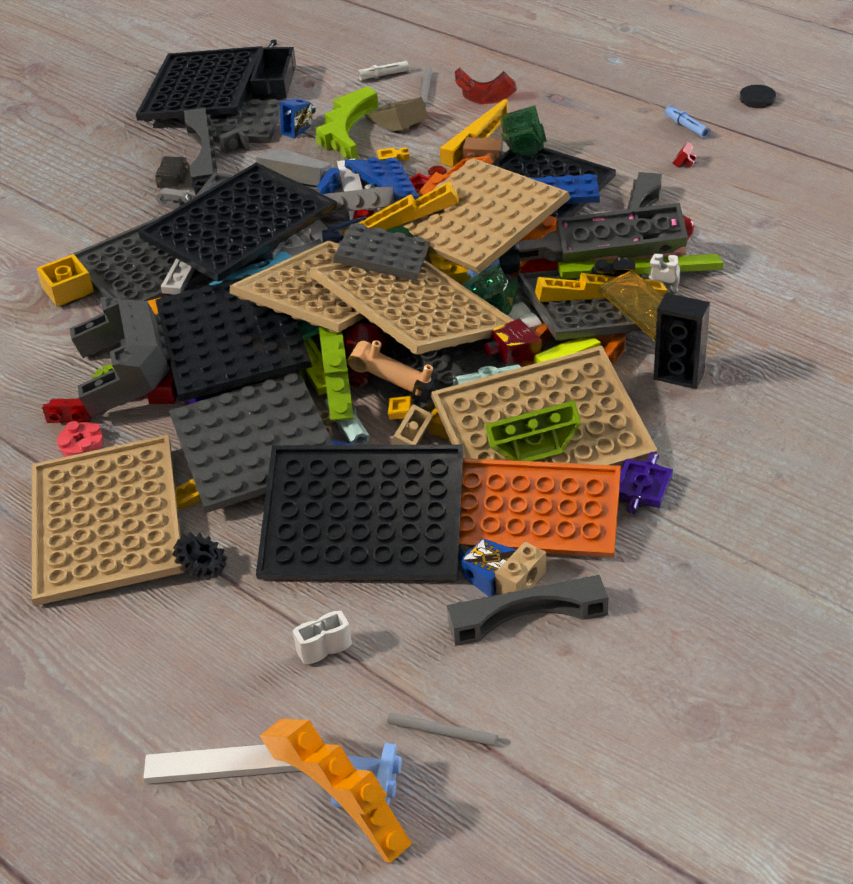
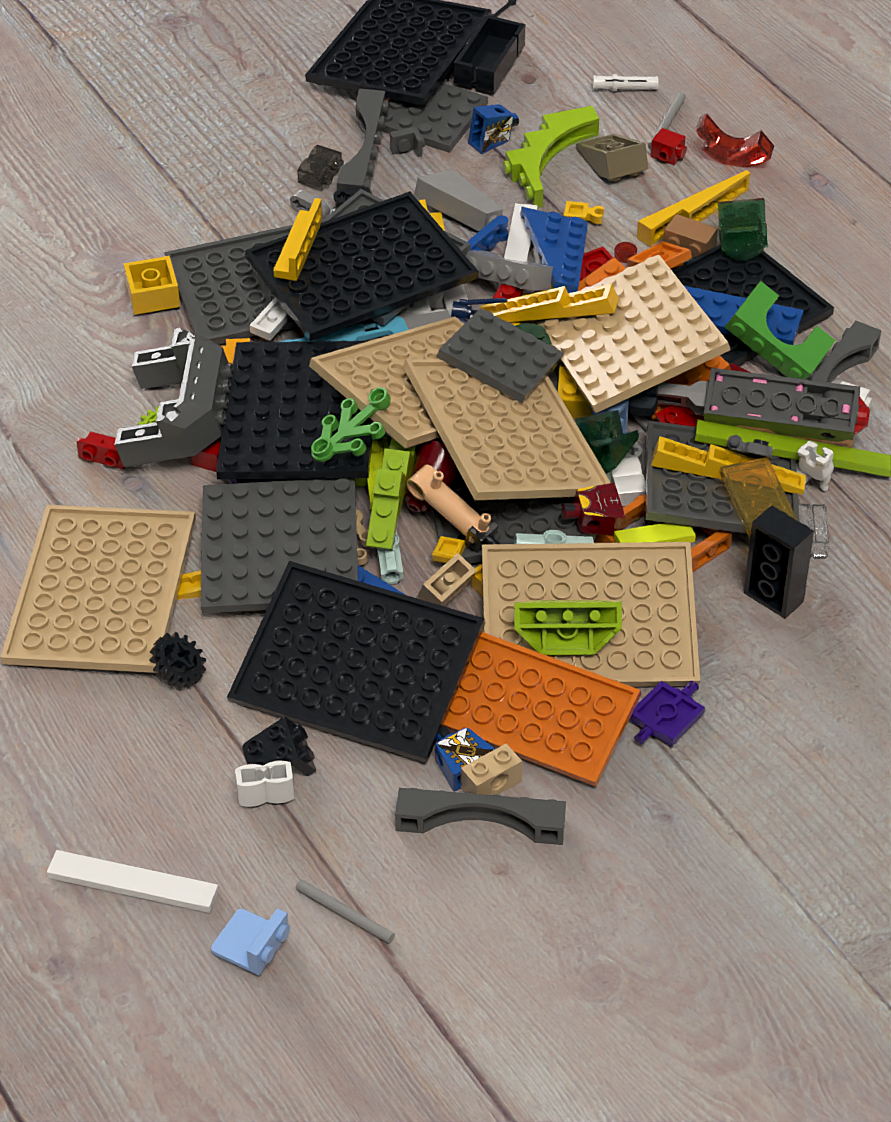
camera: 15 degrees right, 5 degrees up
(88, 434) = (105, 478): coral plate -> none
(182, 213) = (299, 242): none -> yellow fence
(268, 350) = (328, 445): none -> bright green plant
(319, 599) = (281, 743): none -> black bracket
(355, 790) = (229, 943): light orange arch -> none
(436, 100) = (668, 146): none -> red brick
(565, 178) = (751, 328): none -> bright green arch

